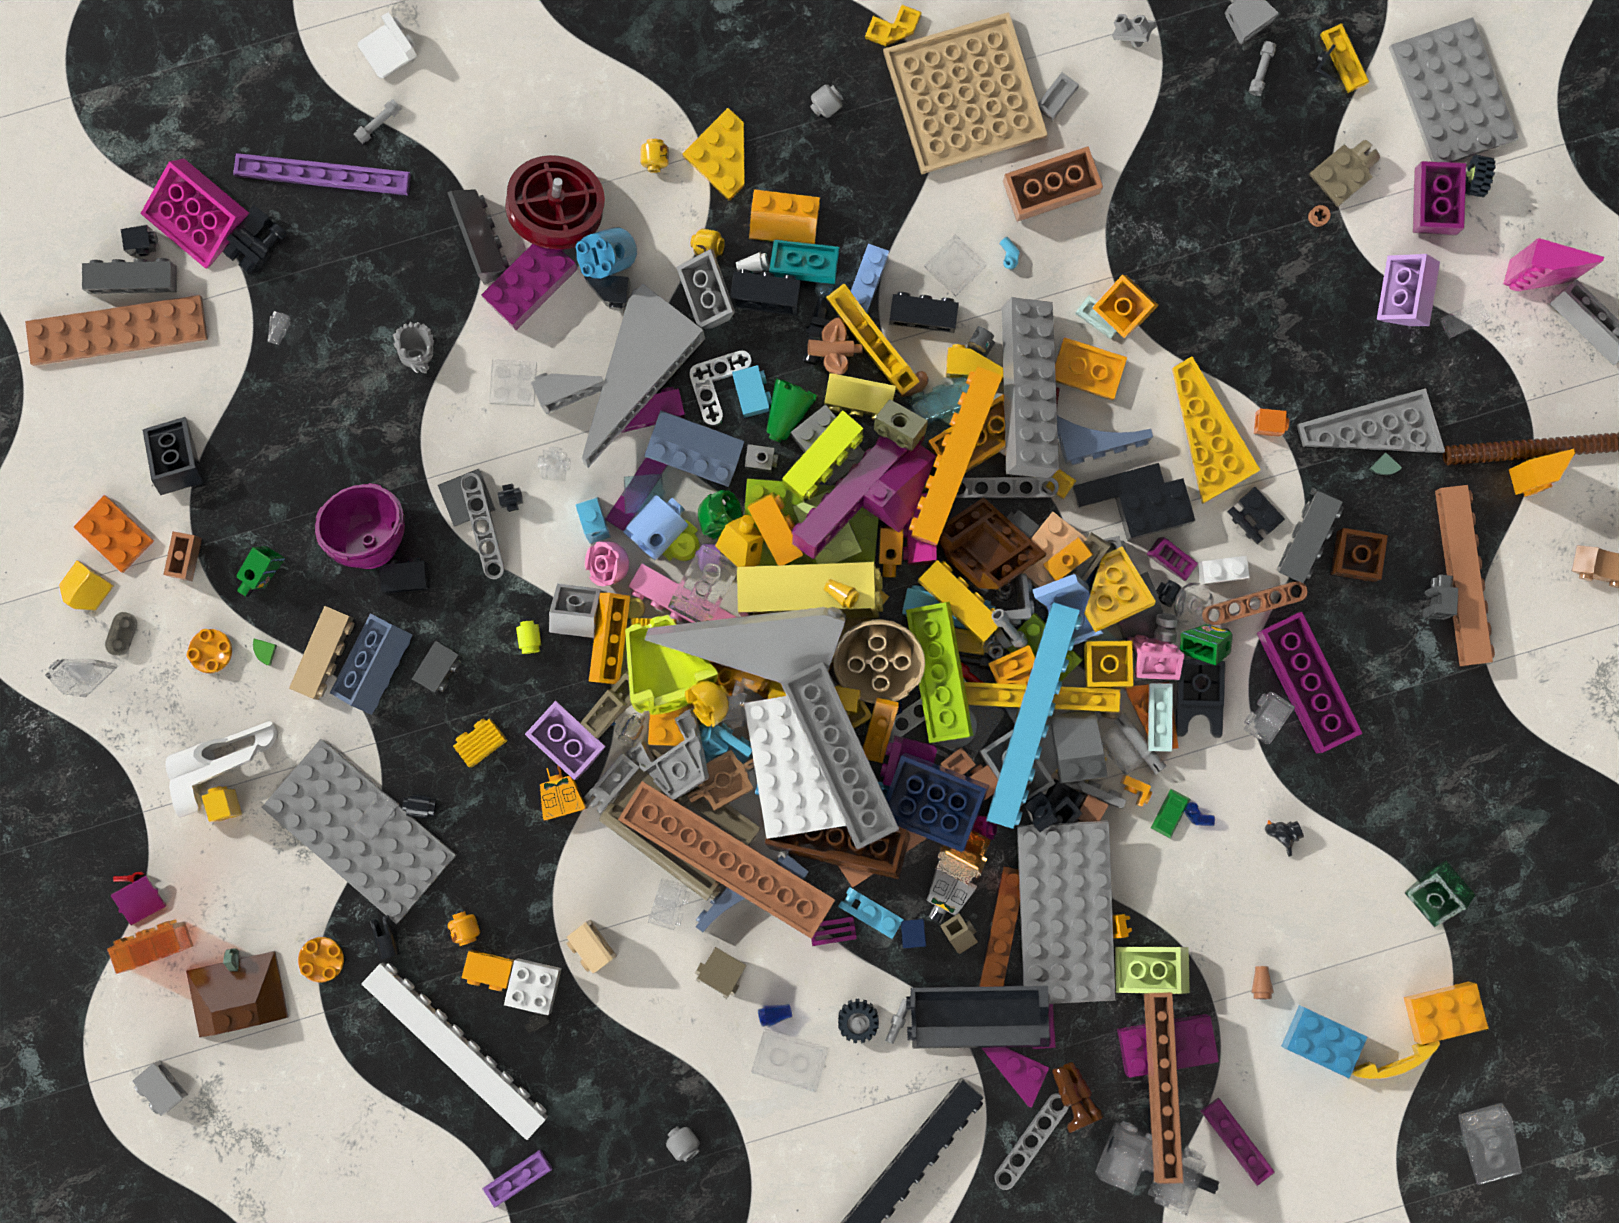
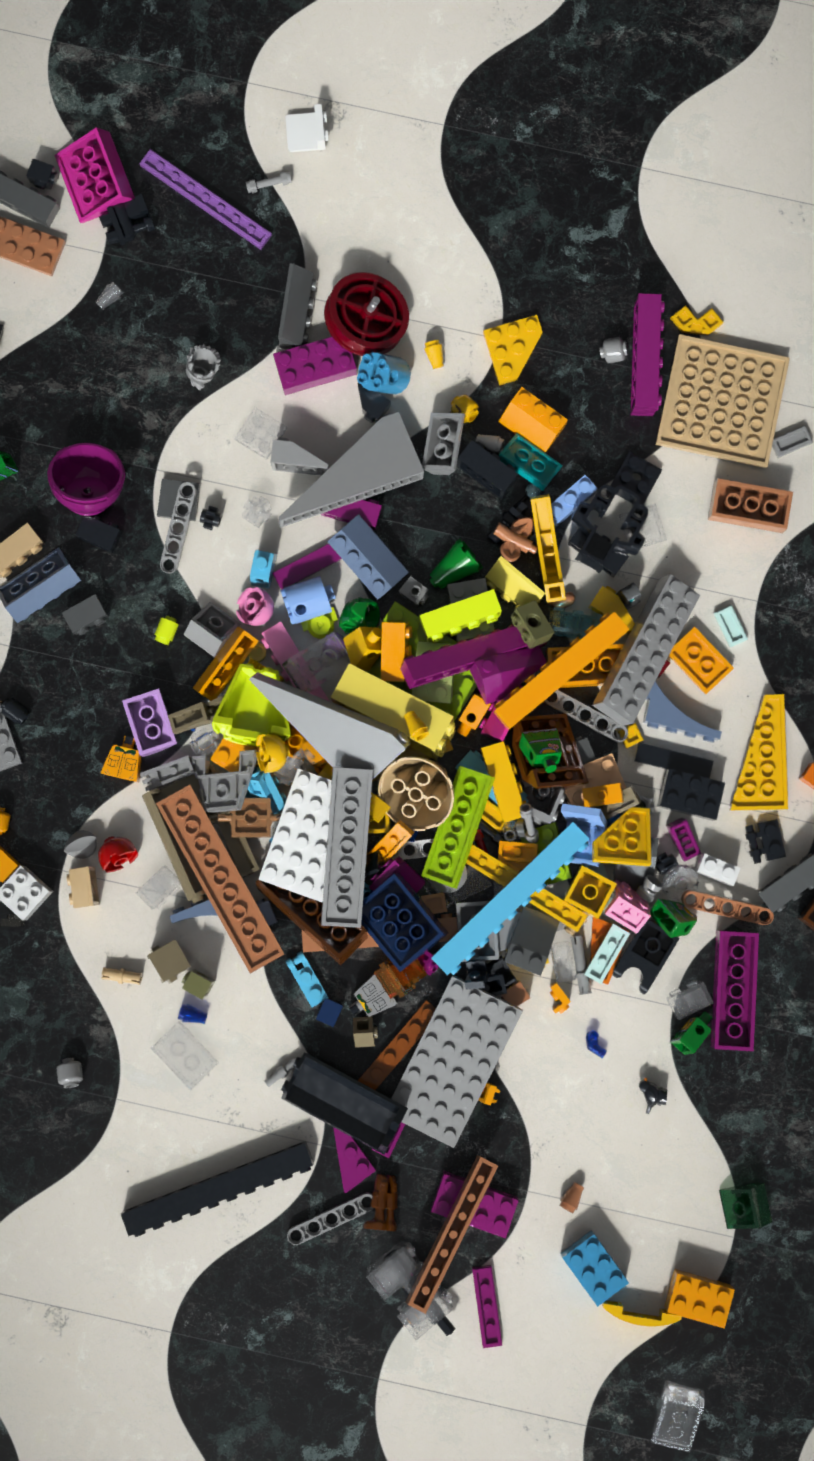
camera: 25 degrees right, 0 degrees up
(480, 742) = (85, 688): yellow brick -> none
(563, 904) = (81, 844): none -> light grey piece
(604, 893) = (115, 853): none -> red cylinder
(640, 491) = (311, 566): clear light blue piece -> none
(645, 203) = (434, 353): none -> yellow cone
(654, 155) = (461, 320): yellow head -> none
(680, 1015) = (121, 976): none -> tan pin
(707, 382) = (406, 512): white beam -> none
(751, 391) = (435, 537): medium azure brick -> none
(763, 979) = (197, 983): none -> olive brick
(837, 930) = (274, 986): magenta tile -> none
(858, 1021) = (251, 1054): black wheel -> none
(862, 87) = (646, 355): none -> magenta brick
(875, 756) = (374, 863): none -> black slope
(922, 234) = (629, 489): none -> black piece
(980, 545) = (542, 748): none -> green torso
(1012, 253) = (691, 541): medium azure arm -> none
(1093, 789) = (525, 978): light grey hinge -> none
(1125, 306) = (754, 628): light orange slope -> none
(1152, 969) = (494, 1141): yellowish green slope -> none
(1170, 813) = (574, 1030): green tile -> none
(1291, 750) = (687, 1039): none -> green torso

